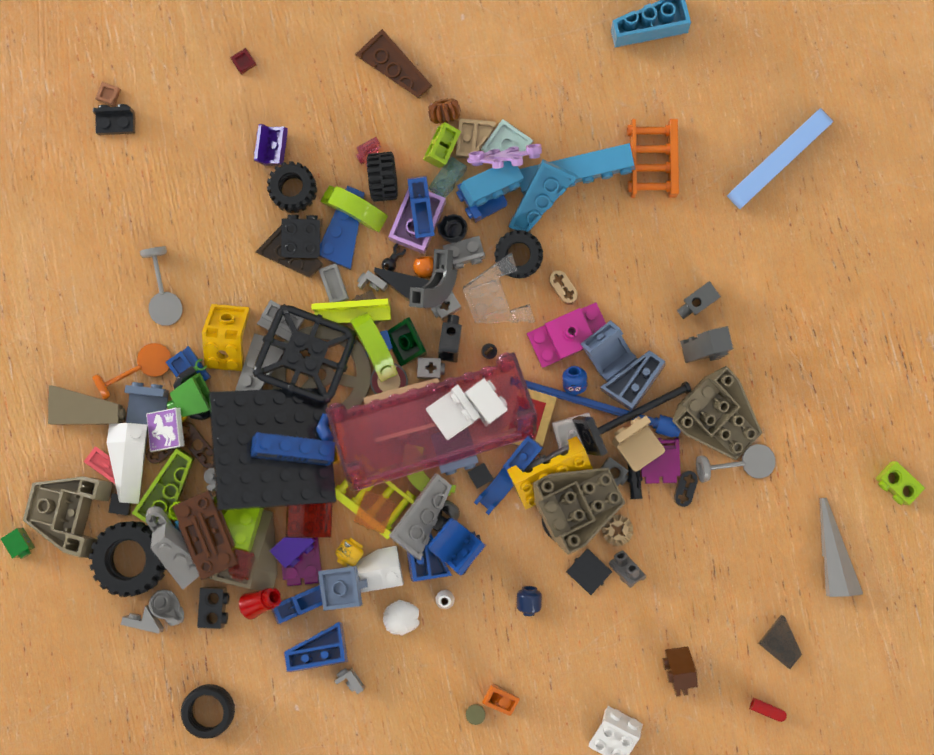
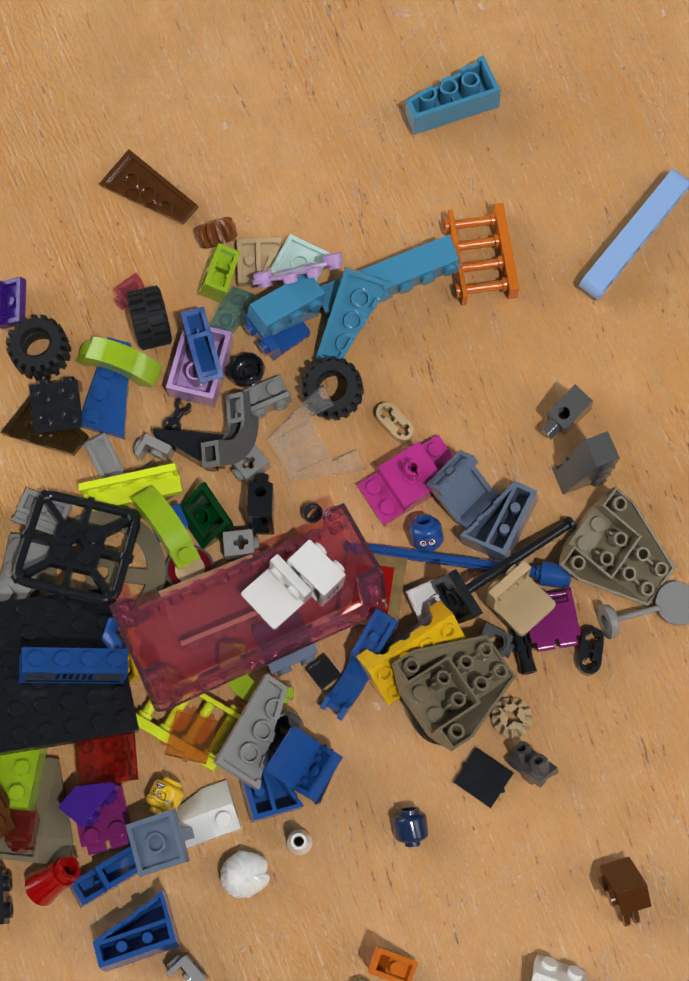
camera: 10 degrees left, 10 degrees down
(423, 266) = (215, 421): orange piece -> none

